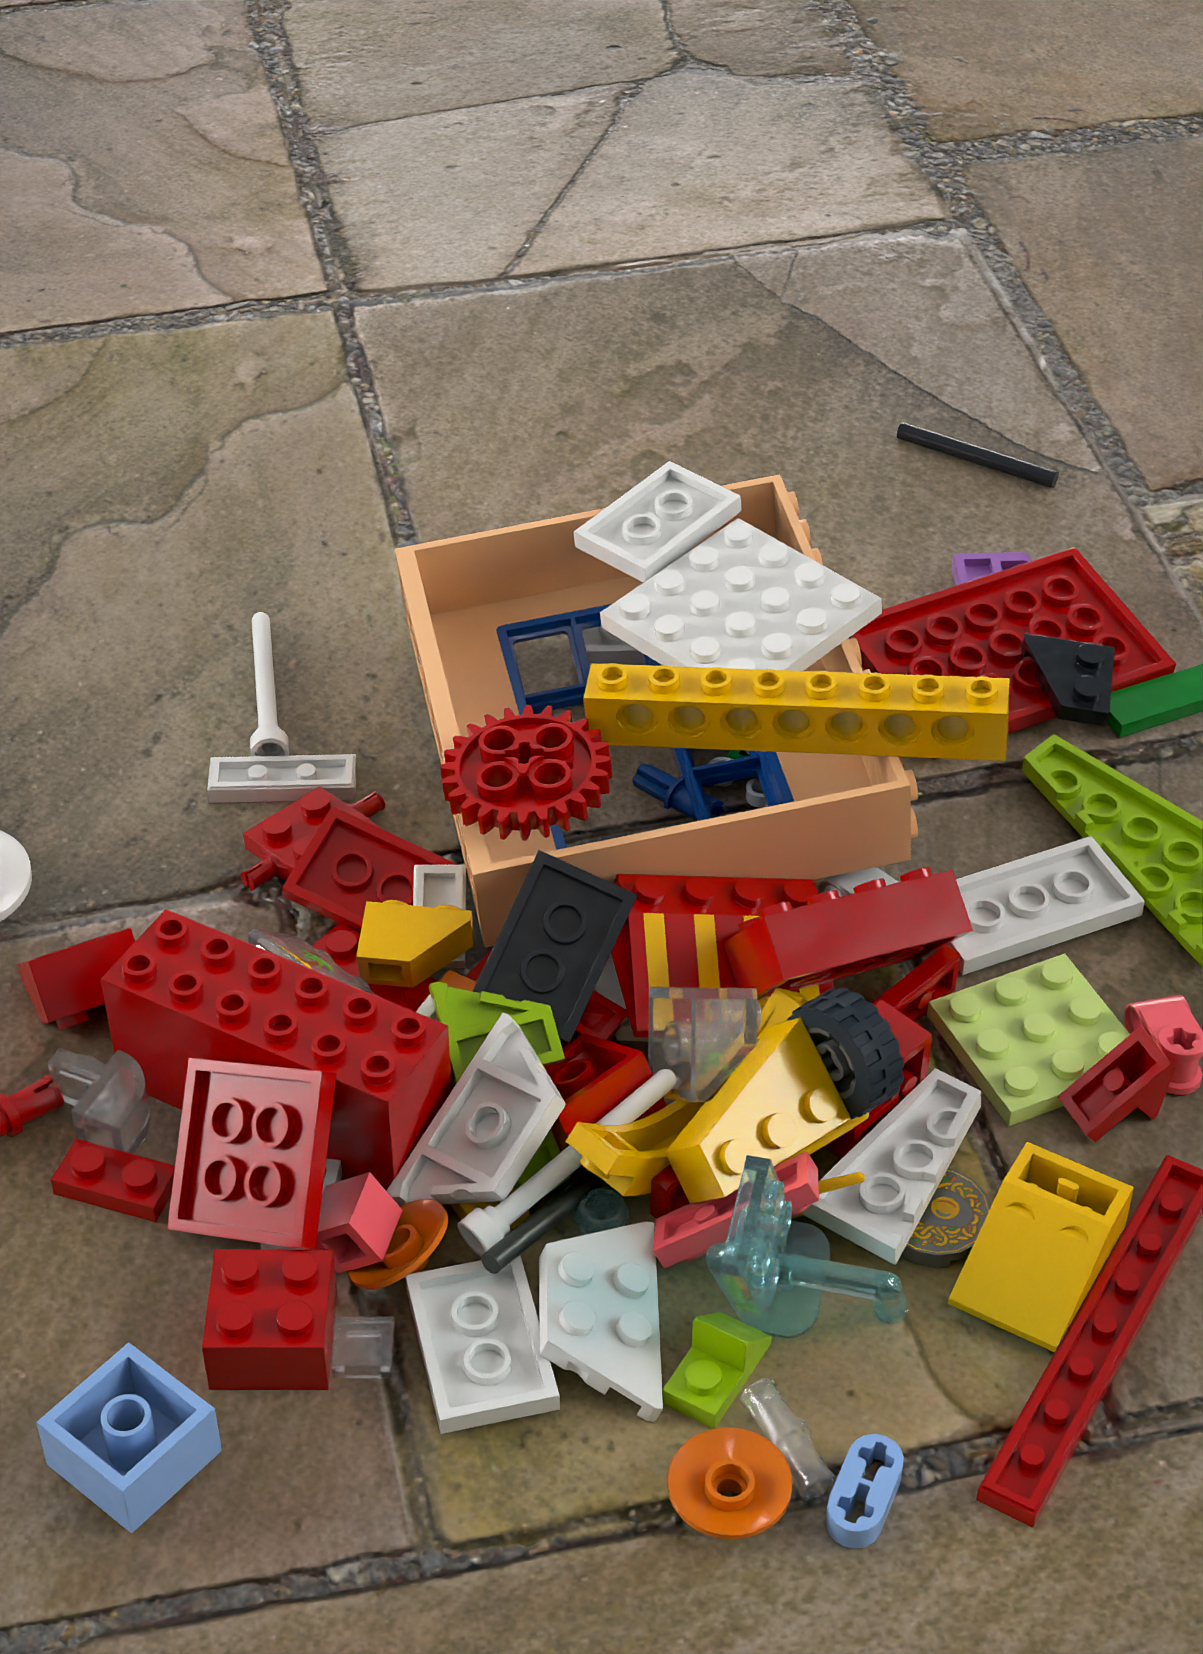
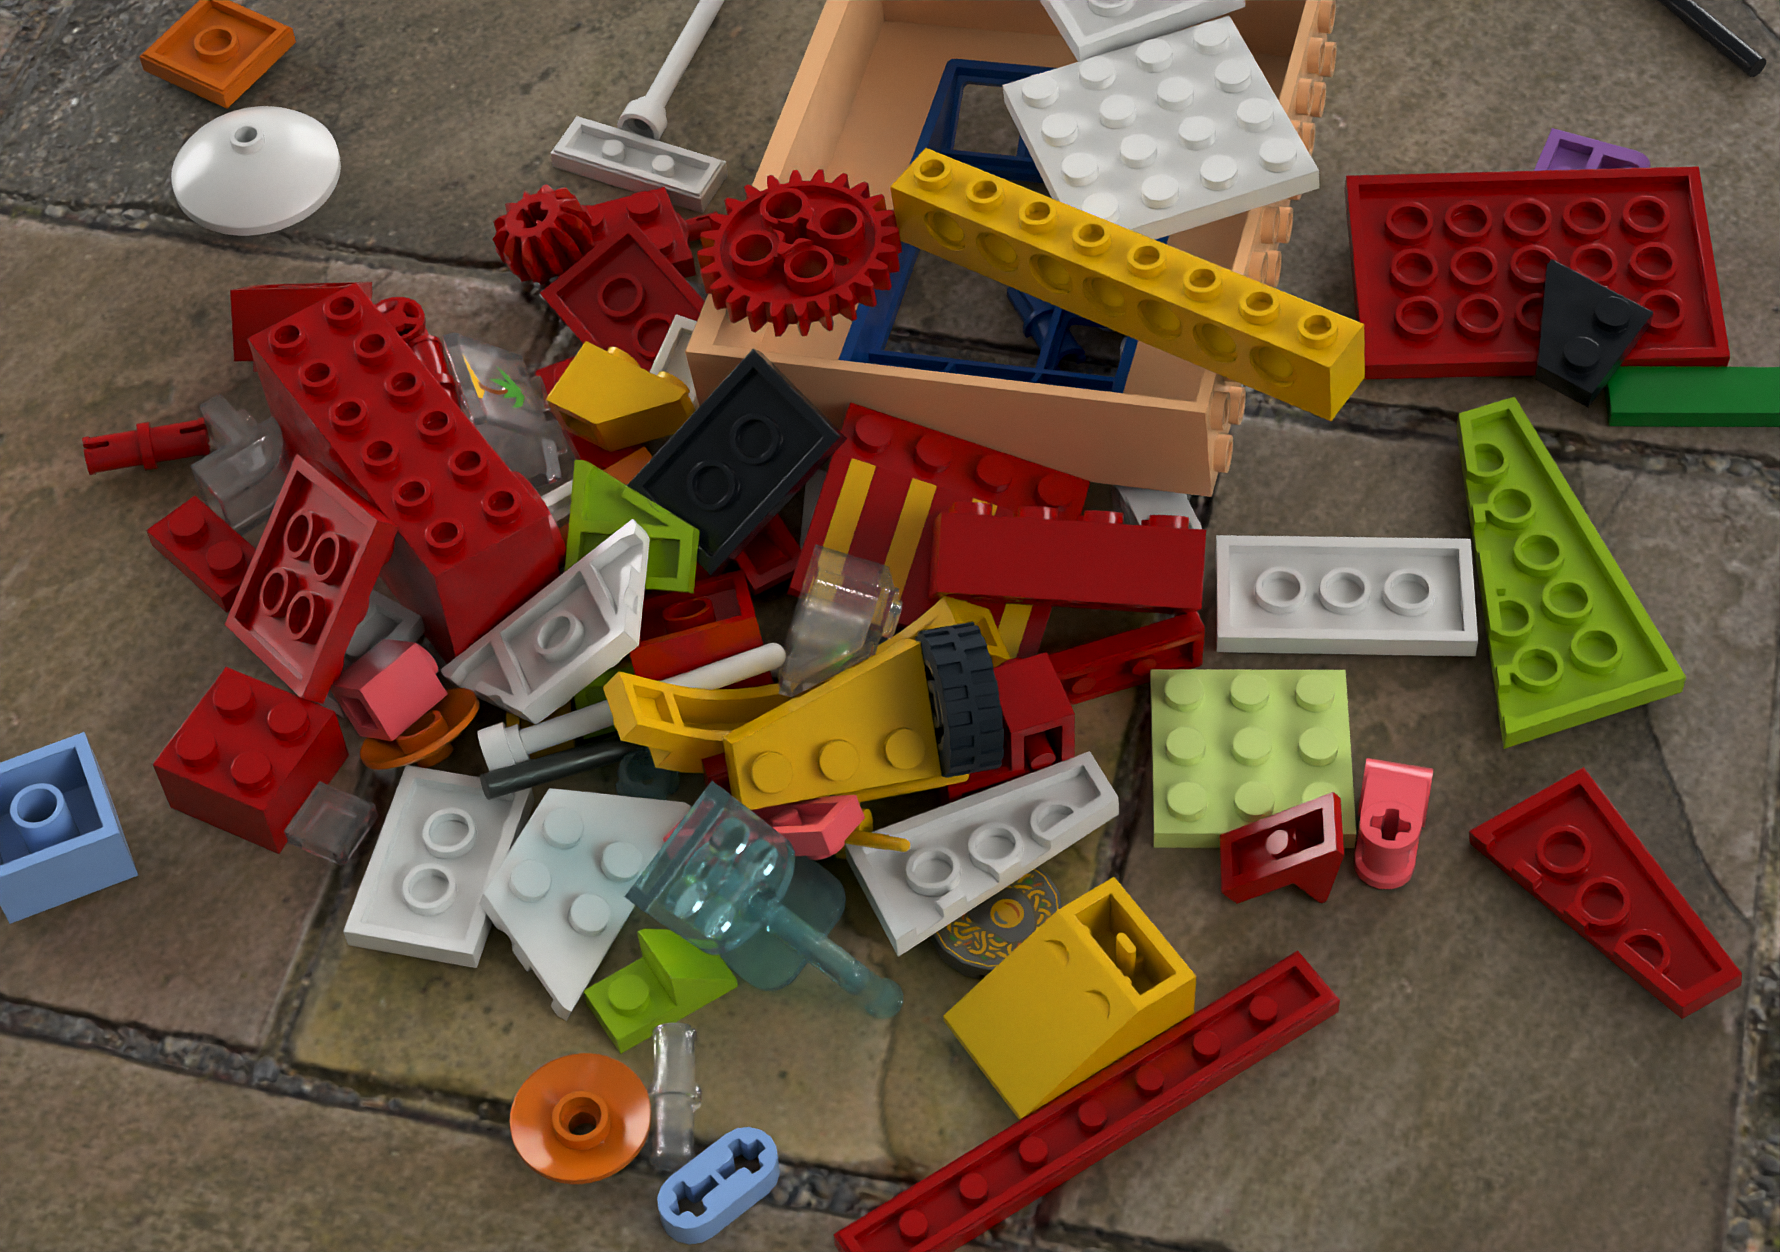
camera: 30 degrees right, 10 degrees up
(258, 843) = (543, 234): none -> red gear

